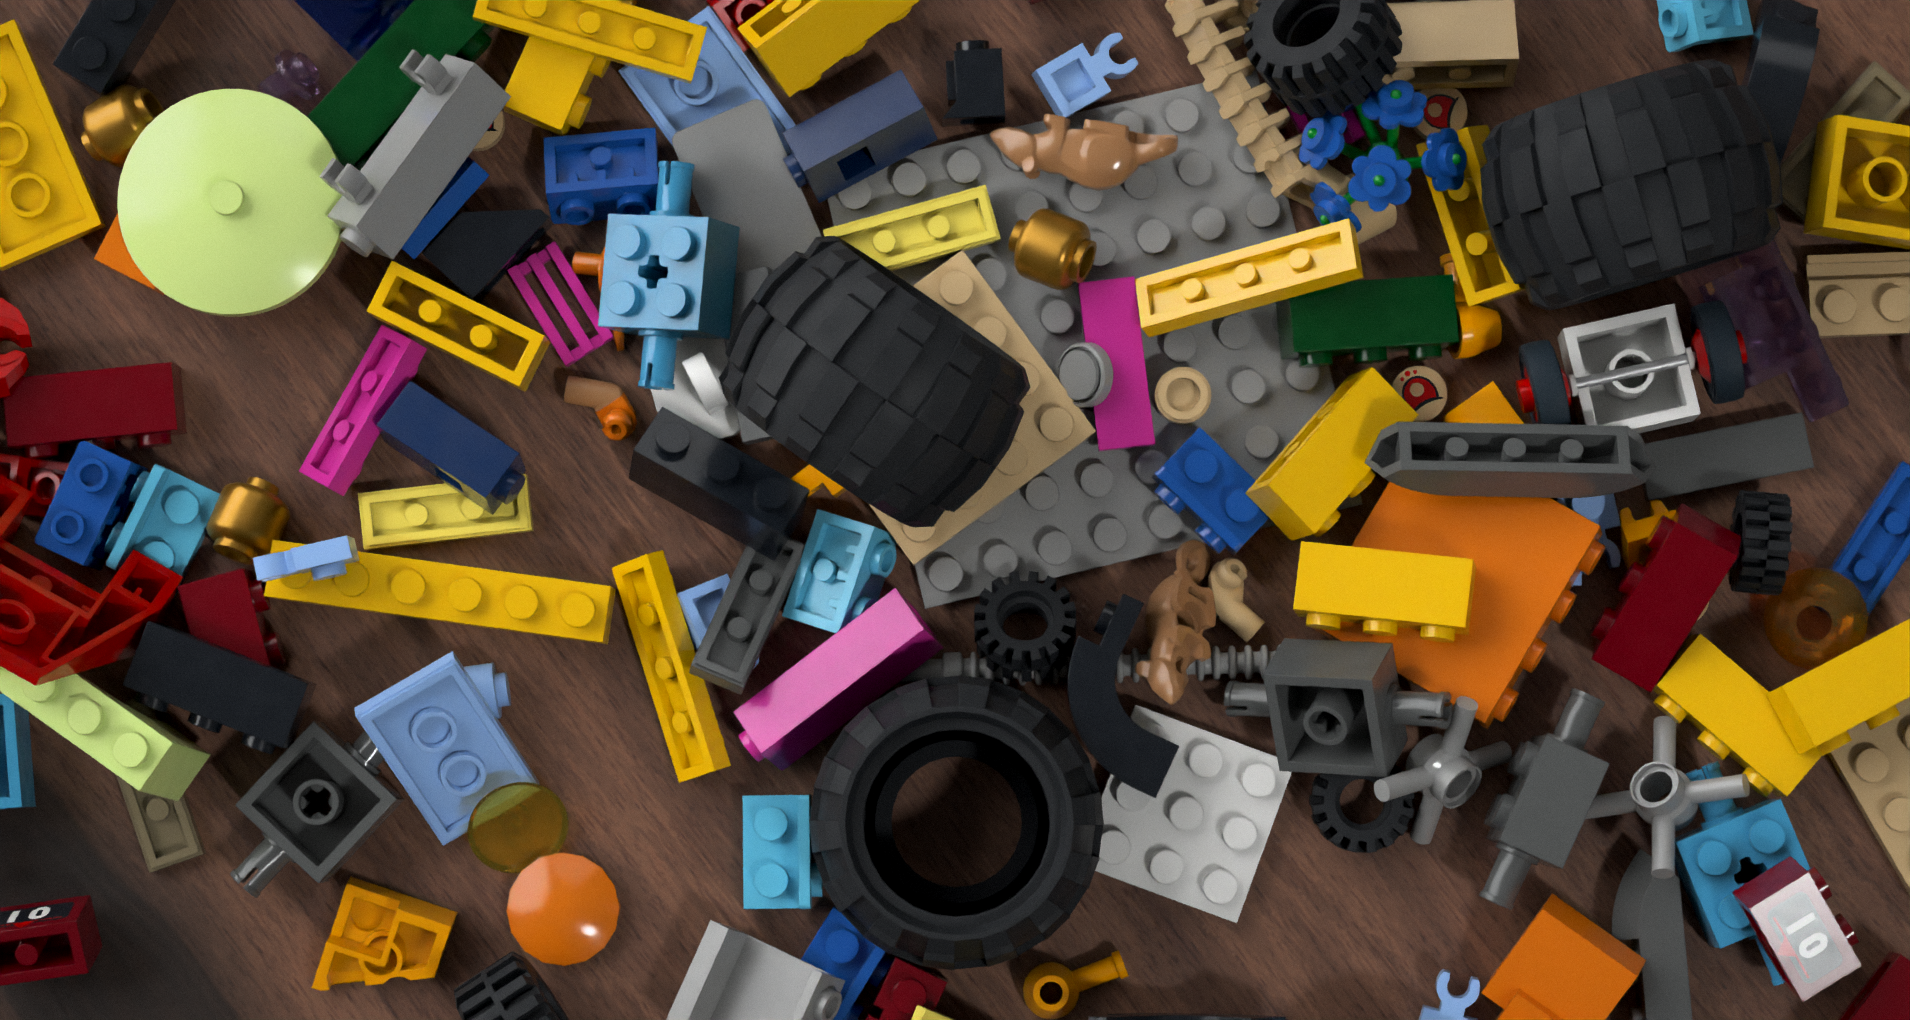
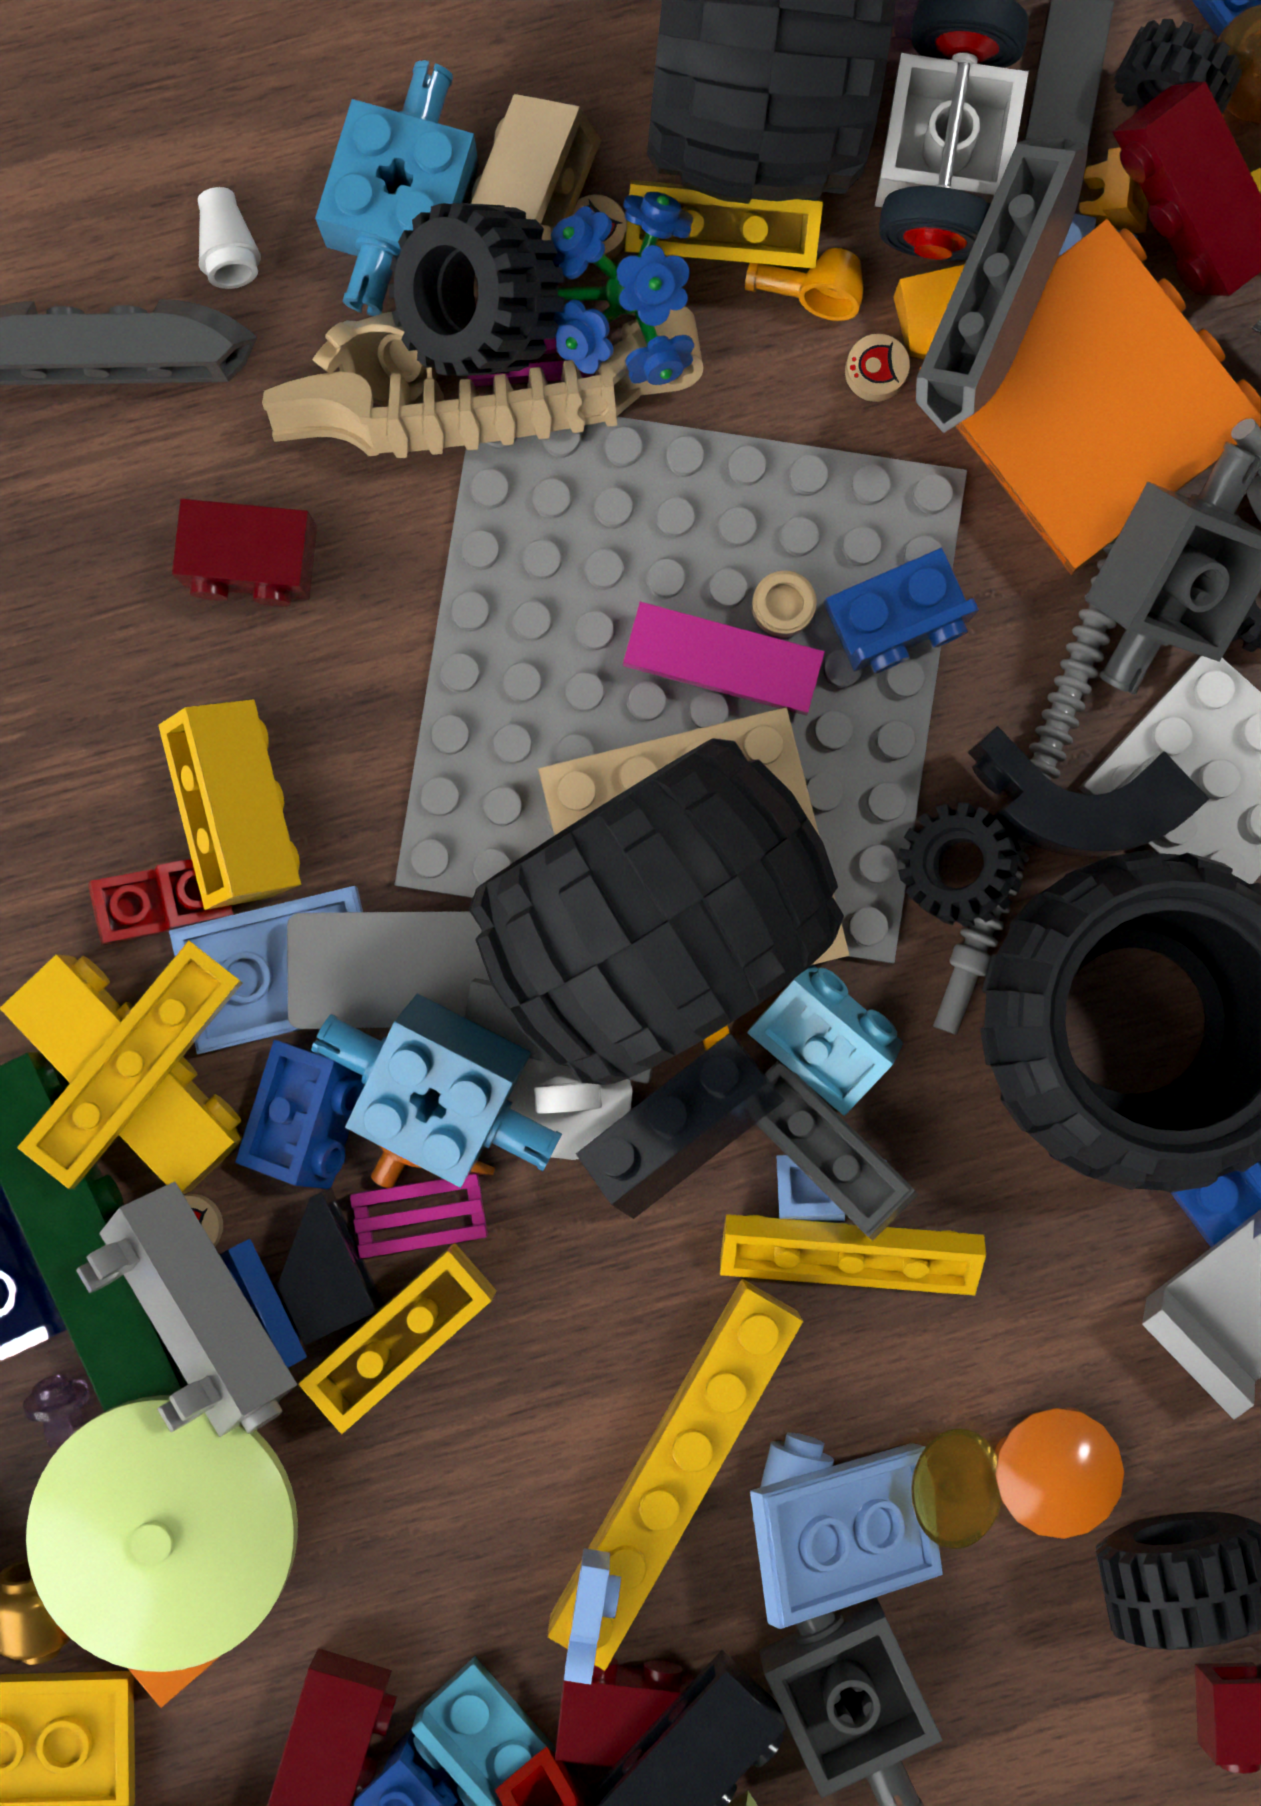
camera: 70 degrees left, 0 degrees up
(247, 520) = (512, 1648): pearl gold head -> none
(352, 427) = (446, 1474): dark pink plate -> none
(383, 937) = (1014, 1677): light orange slope -> none
(436, 515) = (589, 1427): light yellow tile -> none
(453, 448) = (526, 1395): dark blue brick -> none
(608, 403) = (544, 1207): arm -> none
(778, 853) = (1090, 1219): medium azure bracket -> none
(836, 681) = (940, 1087): brick -> none
(858, 137) = (373, 829): dark blue brick -> none
(924, 229) = (499, 801): light yellow tile -> none
(975, 85) = (369, 685): black window -> none
(1052, 249) = (577, 673): pearl gold head -> none
(1078, 79) = (406, 577): light blue plate -> none
(1085, 373) = (722, 692): light grey piece -> none
(1092, 157) = (497, 593): medium nougat animal -> none
(1175, 623) = (1027, 707): medium nougat animal -> none
(1227, 585) = (1009, 648): tan arm -> none
(1249, 278) = (695, 476): yellow plate -> none
(1328, 456) = (912, 473): yellow brick -> none
(1369, 321) = (783, 381): dark green brick -> none
(1384, 590) = (1087, 467): yellow brick -> none

